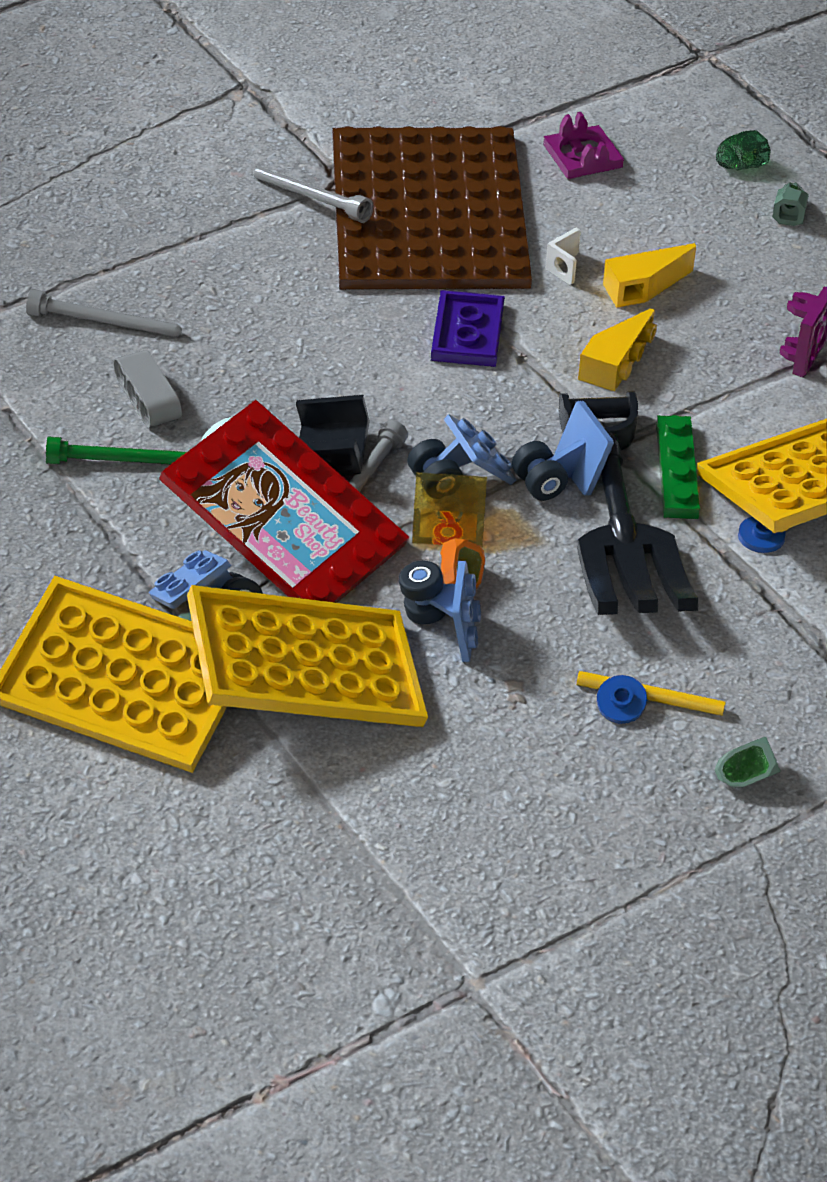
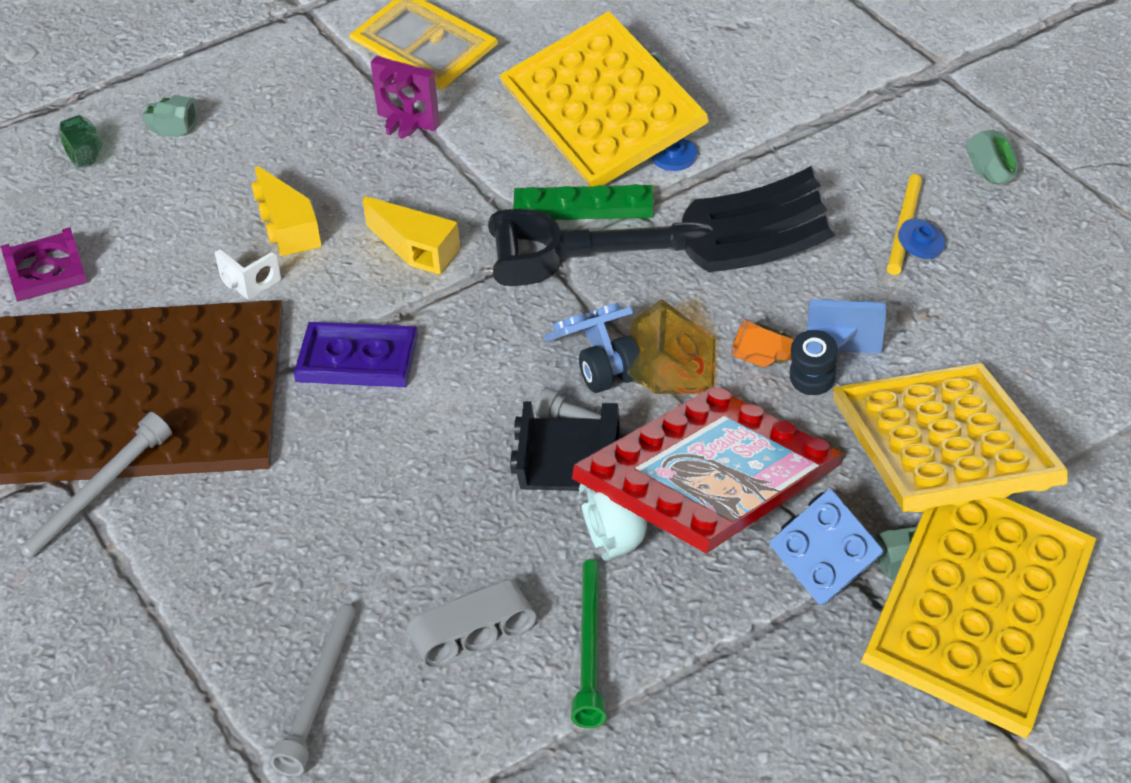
camera: 85 degrees left, 0 degrees up
(578, 456) = (593, 255): medium blue plate -> none

